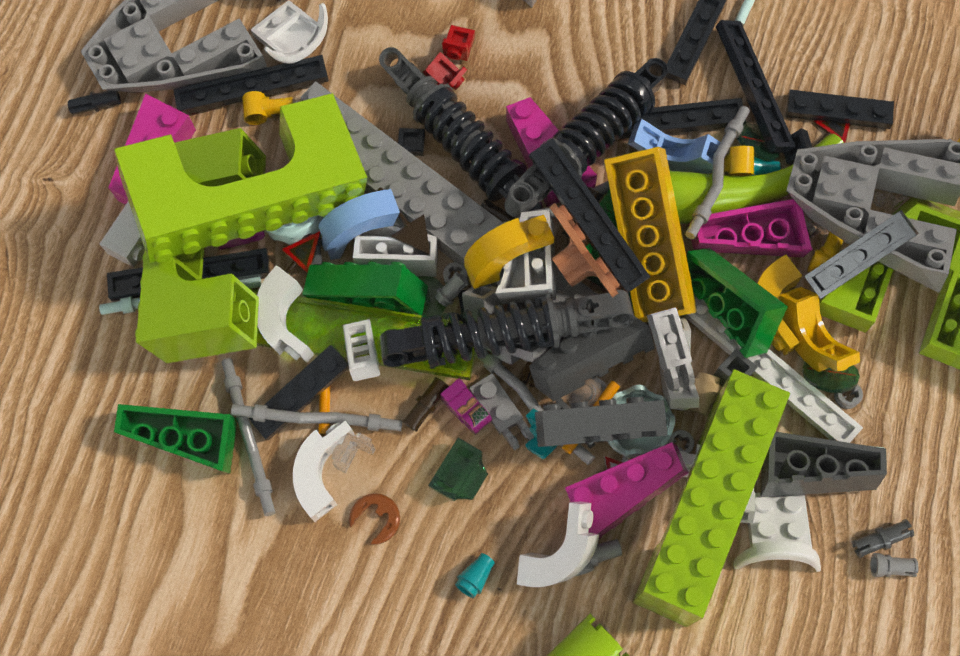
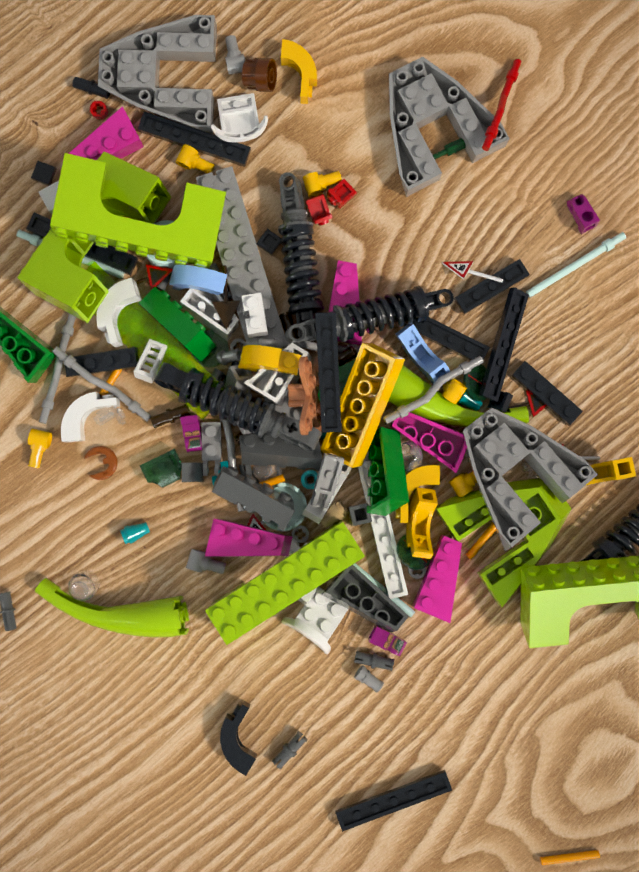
camera: 30 degrees right, 15 degrees up
(92, 225) = (43, 173): none -> black tile
(114, 113) = (93, 107): none -> red bush
(280, 541) = (39, 442): none -> yellow pin
(424, 49) = (316, 183): none -> yellow pin
(449, 207) = (254, 307): none -> white brick
(498, 453) = (192, 472): none -> dark grey brick
(570, 559) = (174, 557): white arch -> none
(650, 38) = (463, 268): none -> piece
(651, 362) = (305, 475): none -> teal cone
(746, 261) = (412, 455): none -> clear hair
(861, 254) = (472, 501): plate -> none
(878, 502) = (387, 640): none -> magenta leg
(889, 393) = (439, 582): none -> dark pink wedge
(896, 308) = (481, 541): none -> light orange bar

